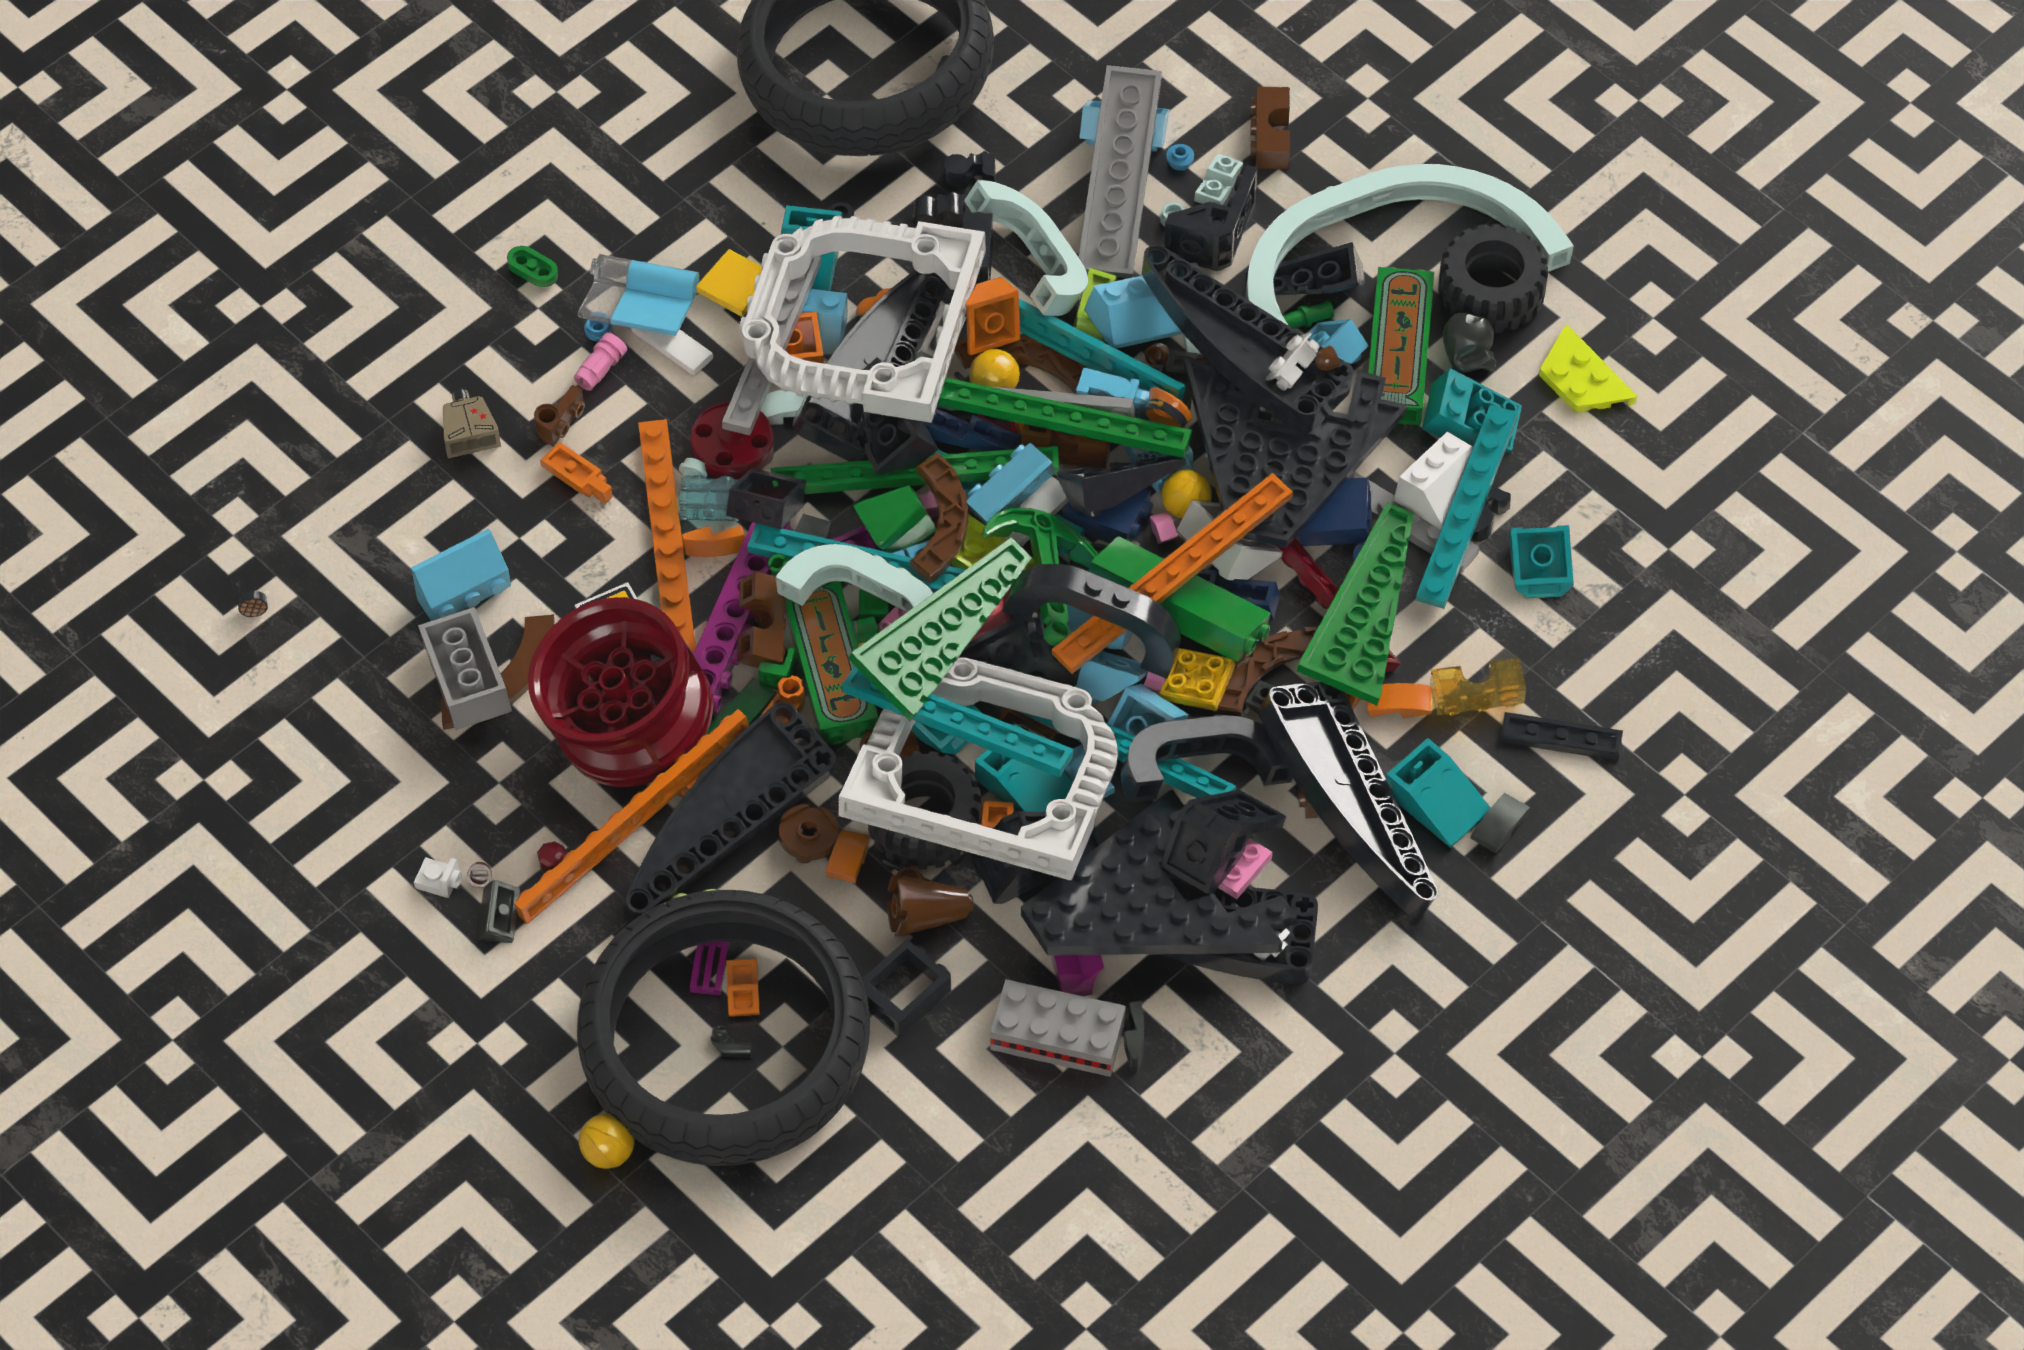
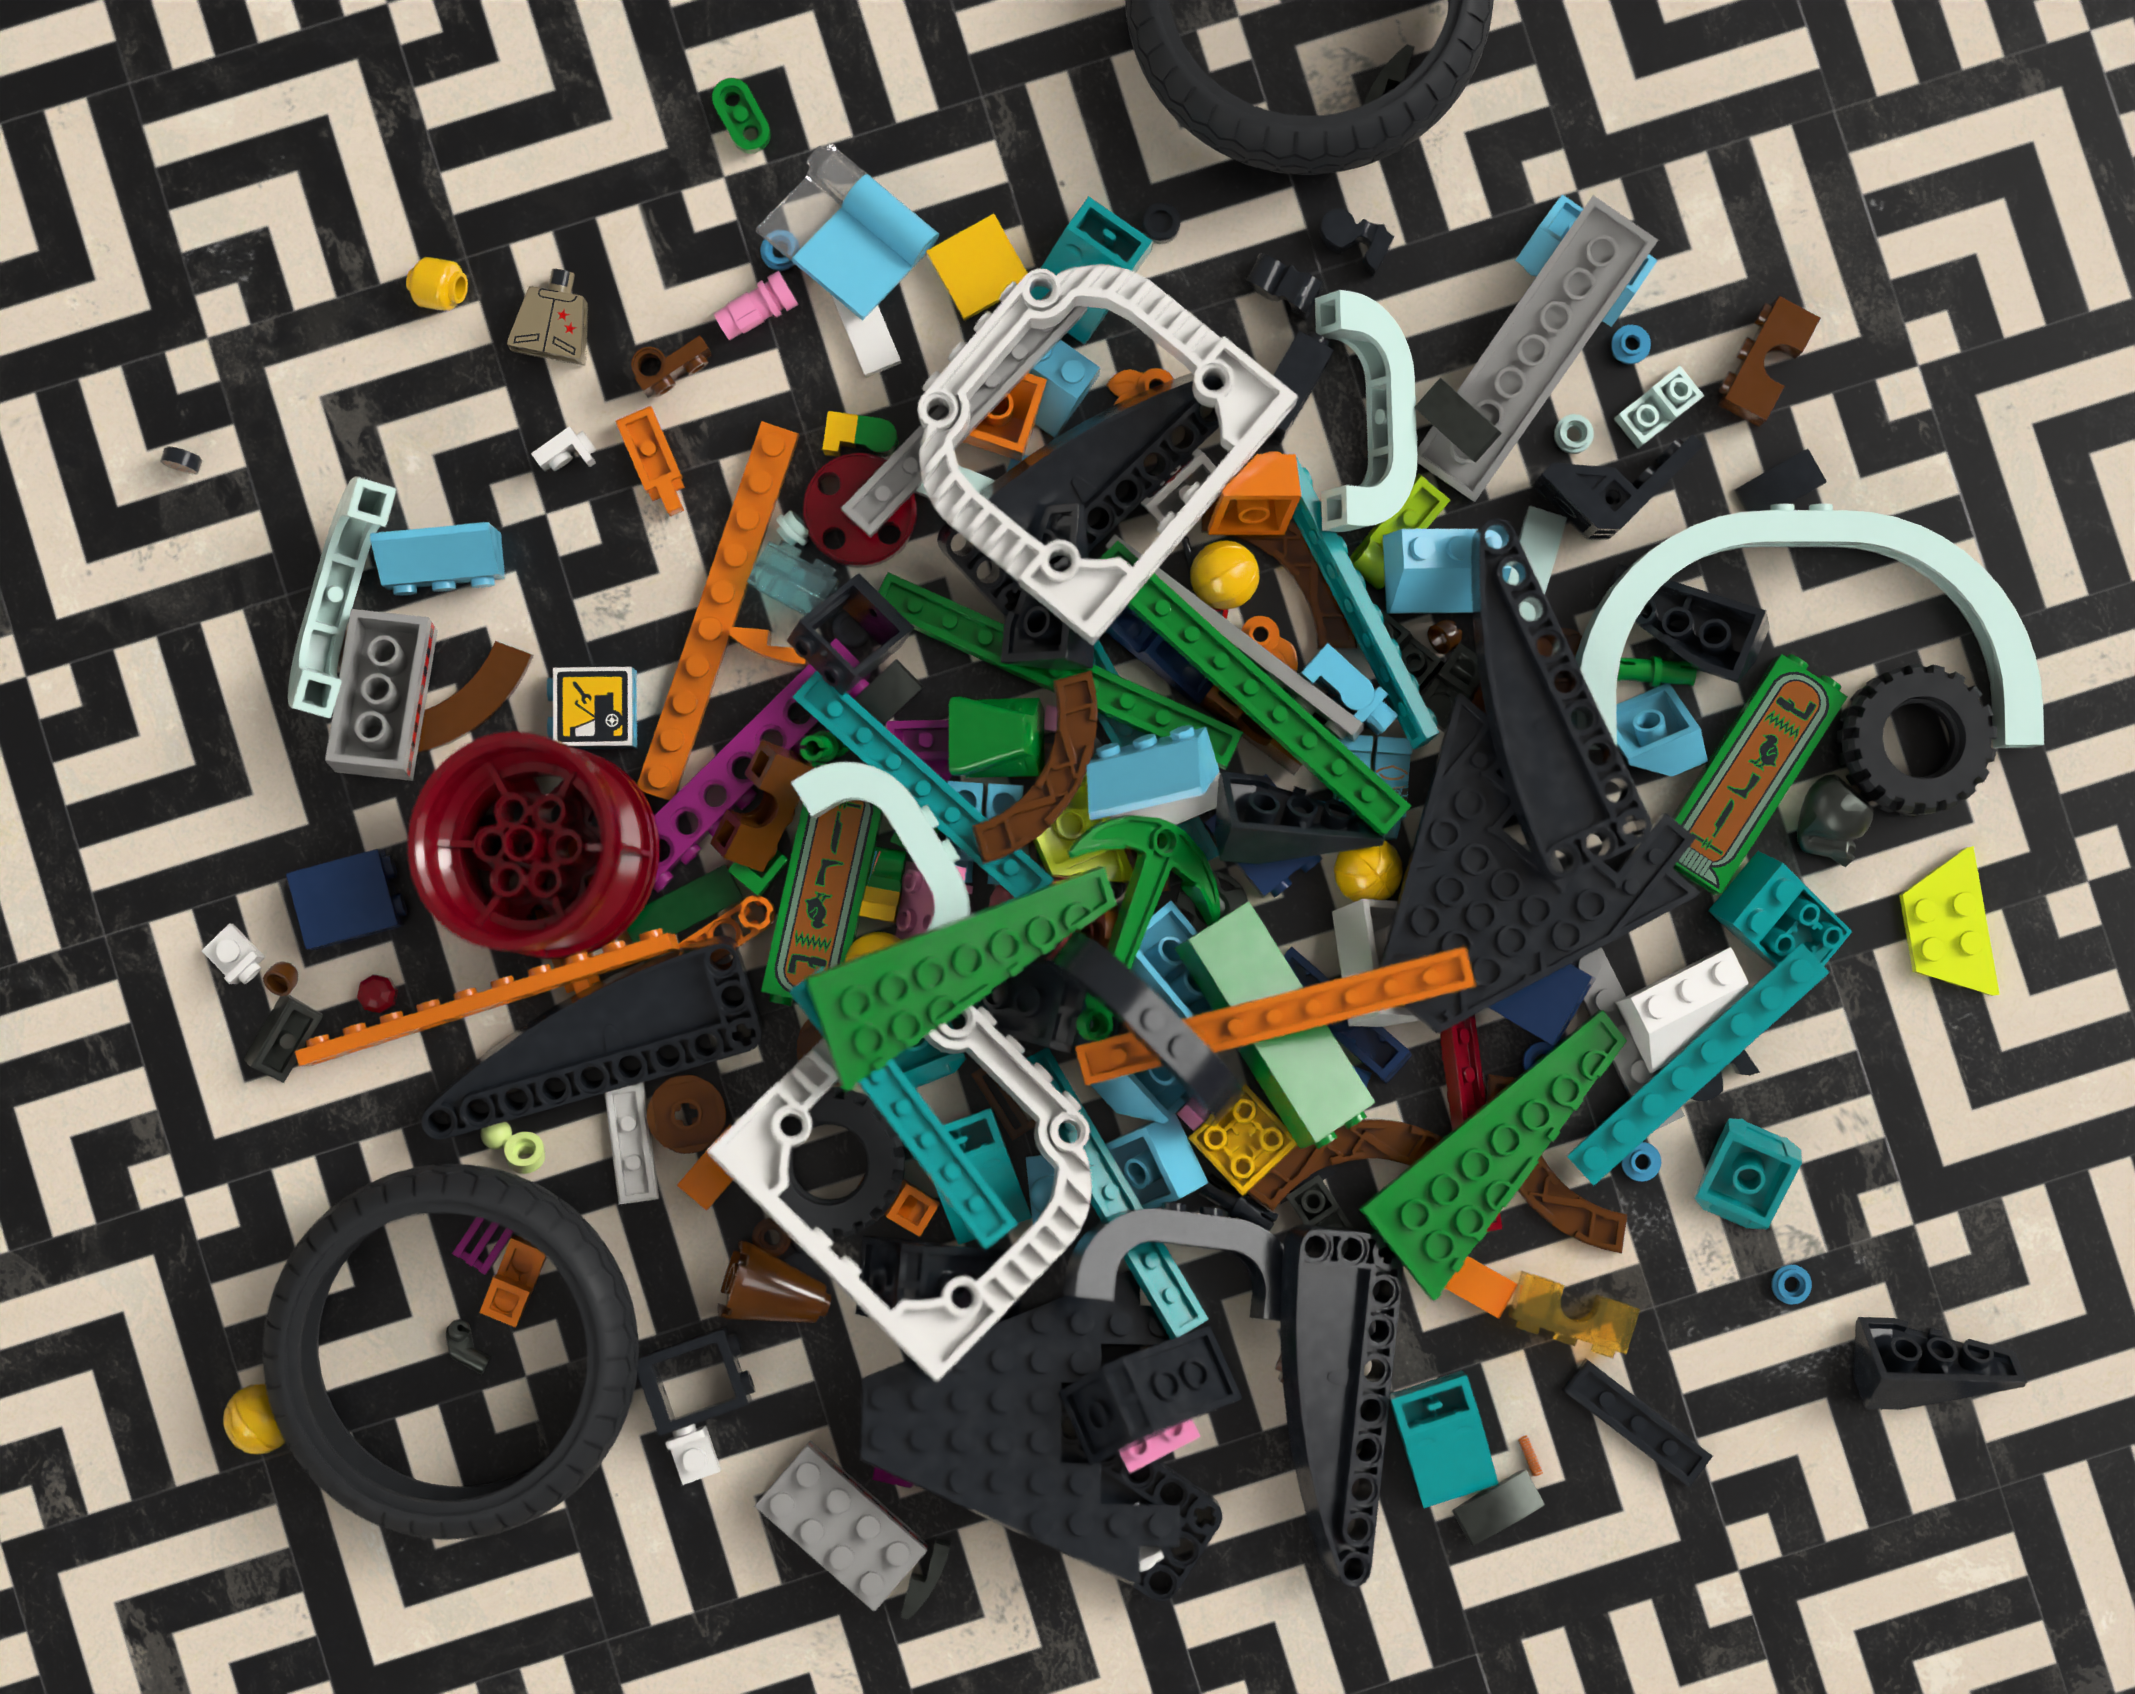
camera: 25 degrees right, 30 degrees up
(377, 434) = (437, 284): none -> yellow head
(405, 666) = (315, 661): none -> light aqua arch
(501, 806) = (346, 899): none -> dark blue brick
(513, 488) = (557, 450): none -> white bracket
(701, 398) = (859, 432): none -> leg
(779, 869) = (631, 1144): none -> white tile
(927, 1035) = (693, 1453): none -> white bracket
(1094, 226) = (1458, 420): none -> pearl dark grey slope
(1163, 527) = (1318, 897): bright pink piece -> none
(1165, 409) = (1397, 755): orange piece -> none
(1285, 367) = (1563, 793): white hinge -> none
(1325, 175) = (1782, 483): none -> black slope
(1327, 359) = (1623, 809): reddish brown hinge -> none
(1436, 637) = (1561, 1205): none -> reddish brown tile
(1468, 592) = (1654, 1165): none -> dark azure plate
(1503, 787) = (1528, 1457): none -> orange leg
(1610, 605) = (1803, 1284): none -> dark azure plate
(1718, 625) = (1916, 1368): none -> black wedge

